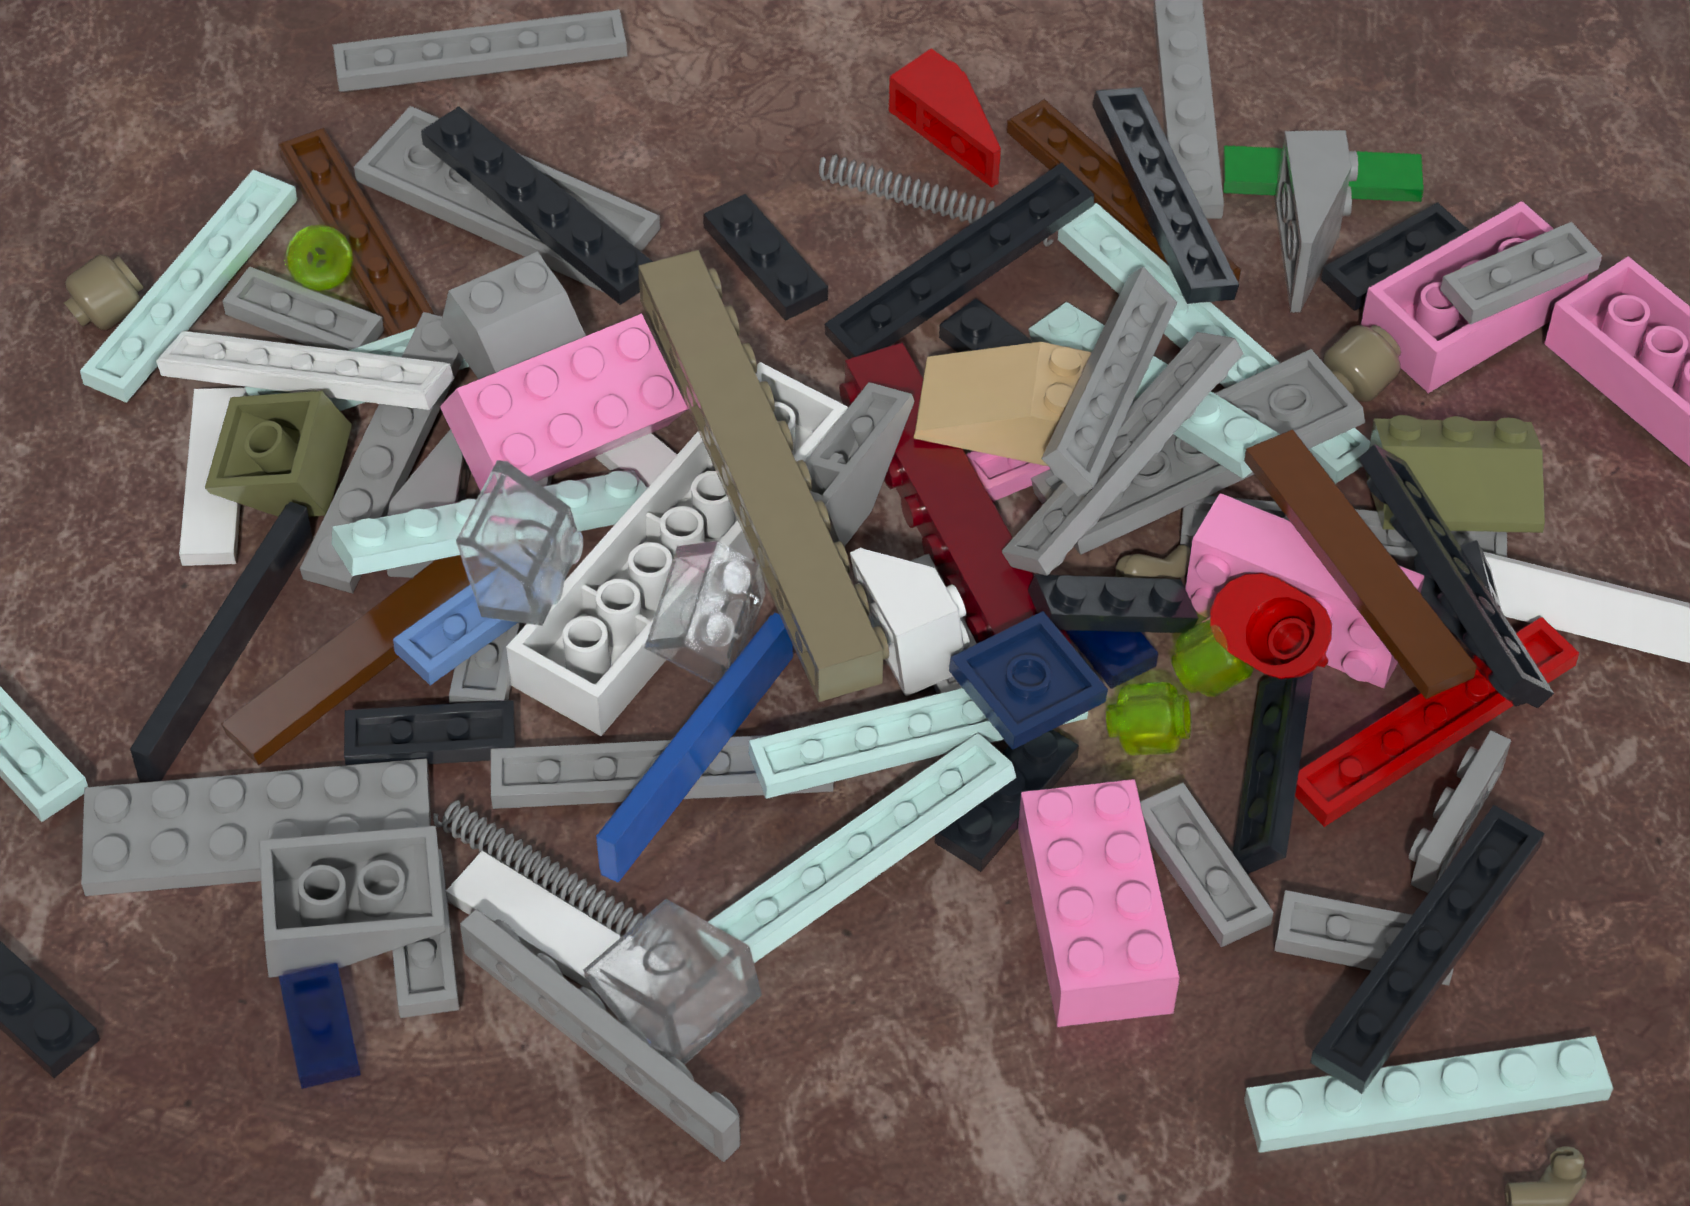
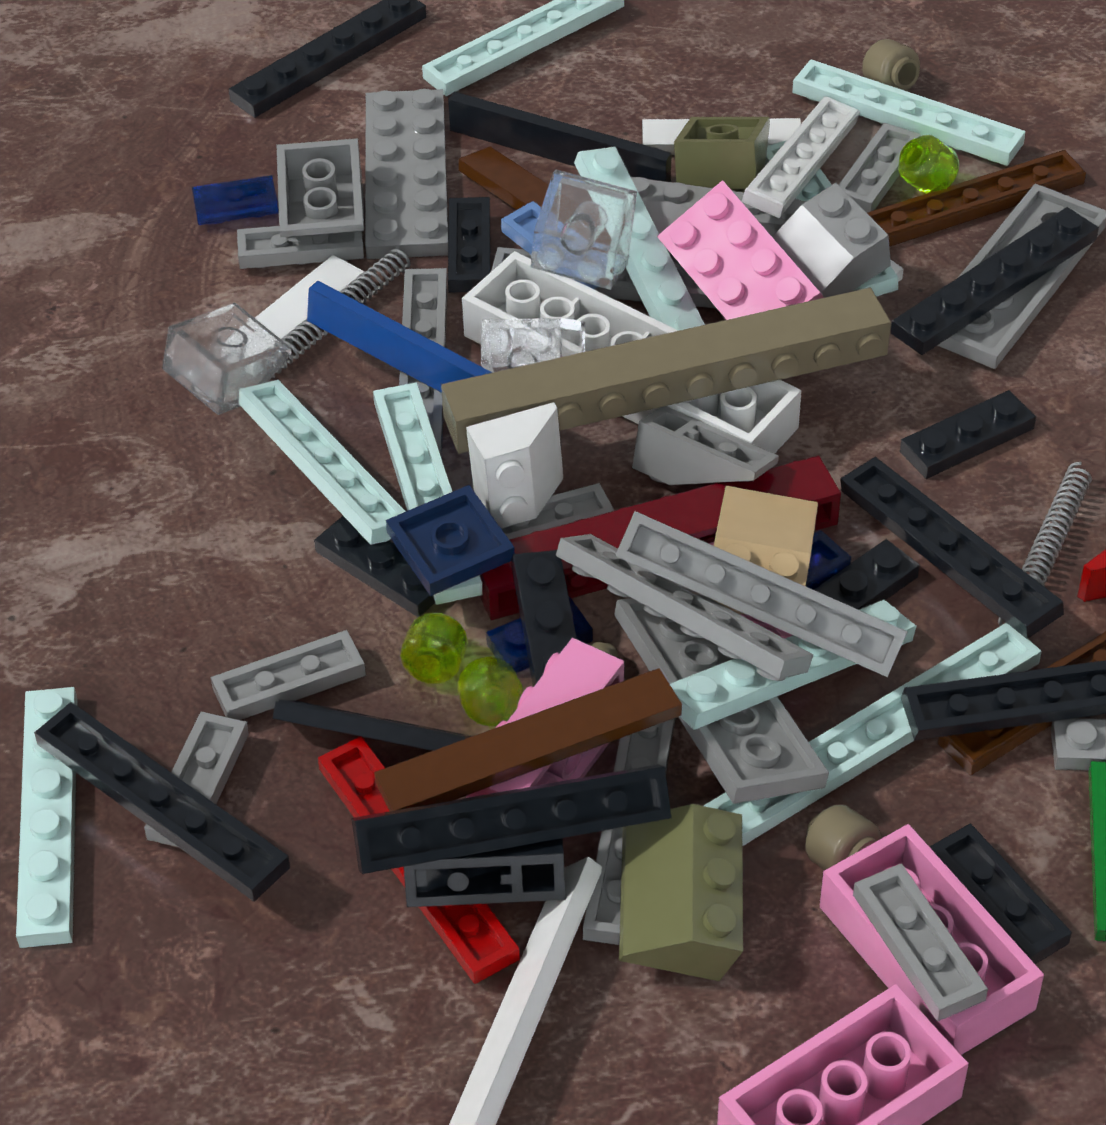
camera: 95 degrees right, 5 degrees down
(615, 1045) = (143, 360): light grey plate -> none
(1097, 903) = (253, 598): bright pink brick -> none
(1272, 626) = (480, 701): red piece -> none
(1311, 204) = (1024, 802): light grey slope -> none
(1458, 810) = (316, 859): light grey plate -> none

